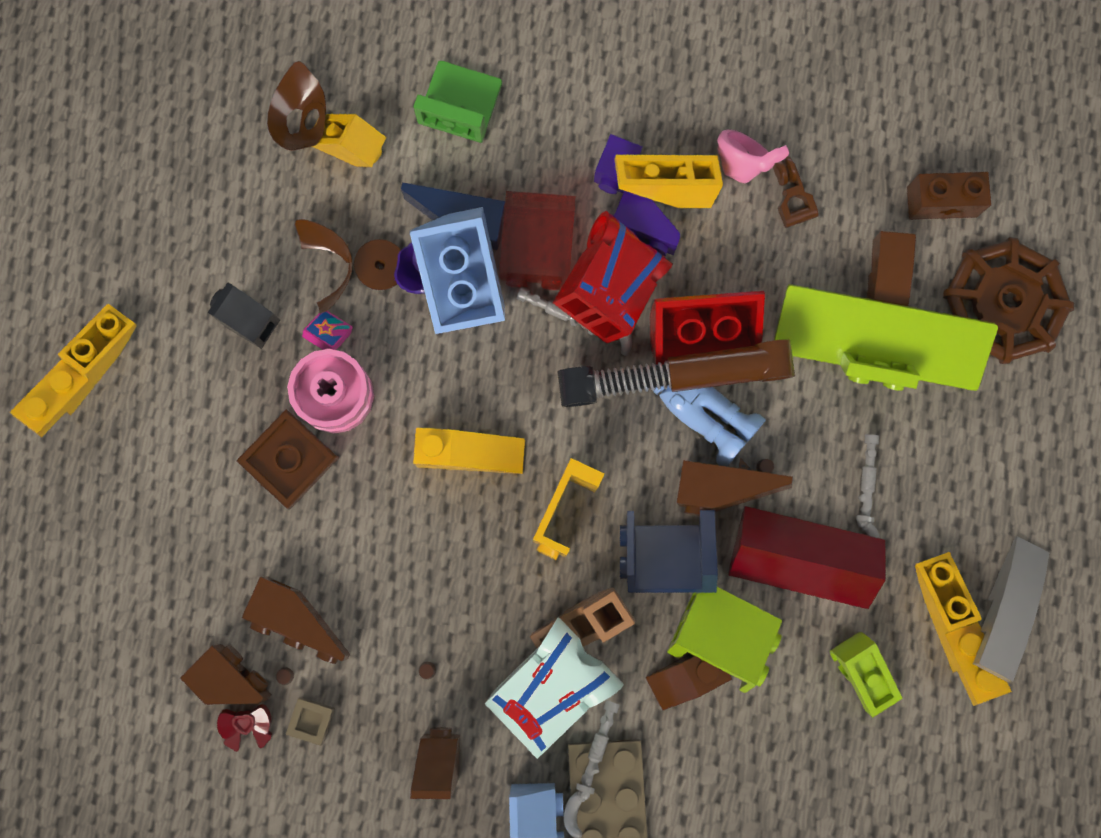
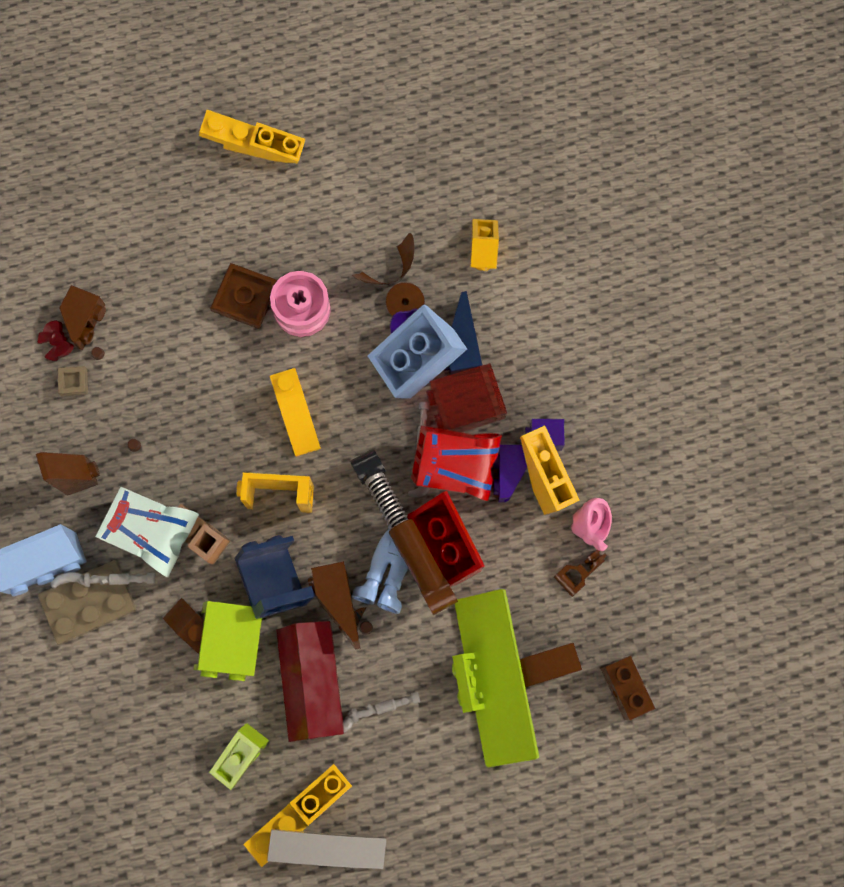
camera: 70 degrees right, 5 degrees down
(243, 315) = (329, 226): black slope -> none
(290, 614) = (139, 337): reddish brown slope -> none
(296, 91) = (506, 198): reddish brown piece -> none
(327, 331) = (342, 285): tile -> none
(458, 101) = (546, 307): bright green bracket -> none
(1027, 293) = (578, 780): reddish brown plate -> none

